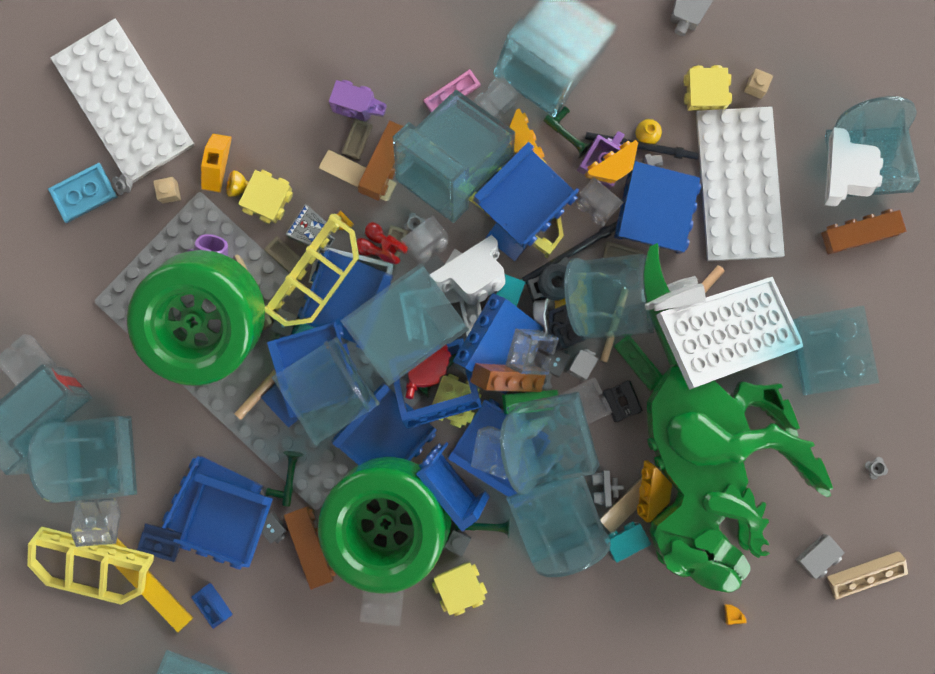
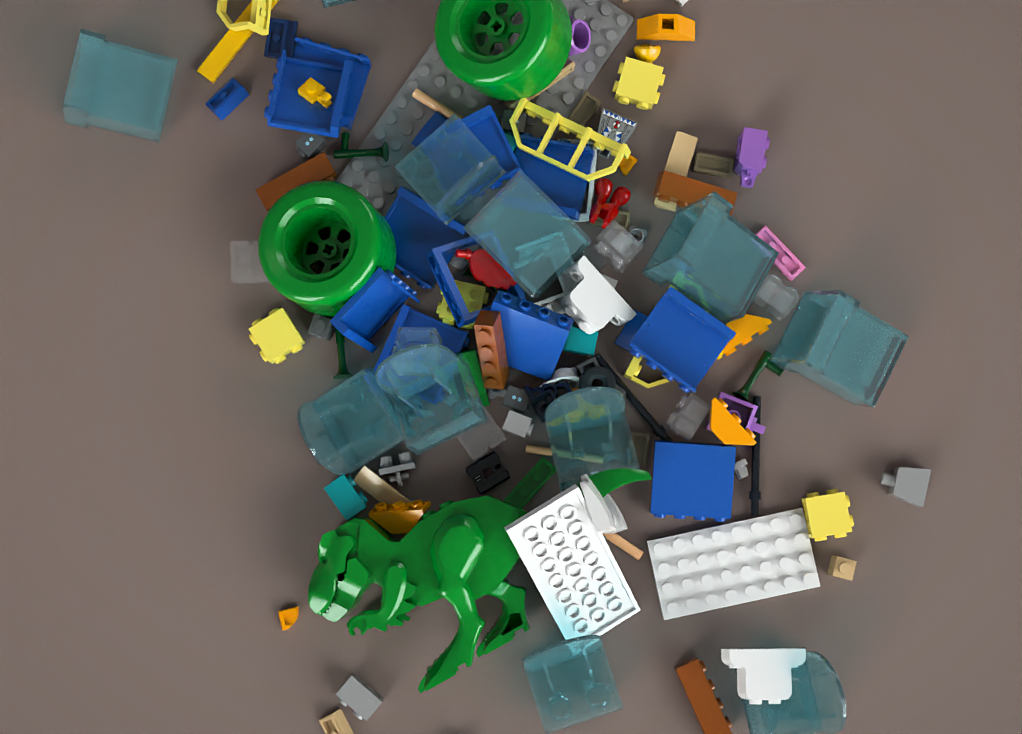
camera: 85 degrees right, 0 degrees up
(221, 515) = (314, 91): none -> yellow plate
(524, 355) = (521, 362): clear piece -> none
(648, 131) = (771, 461): yellow brick -> none

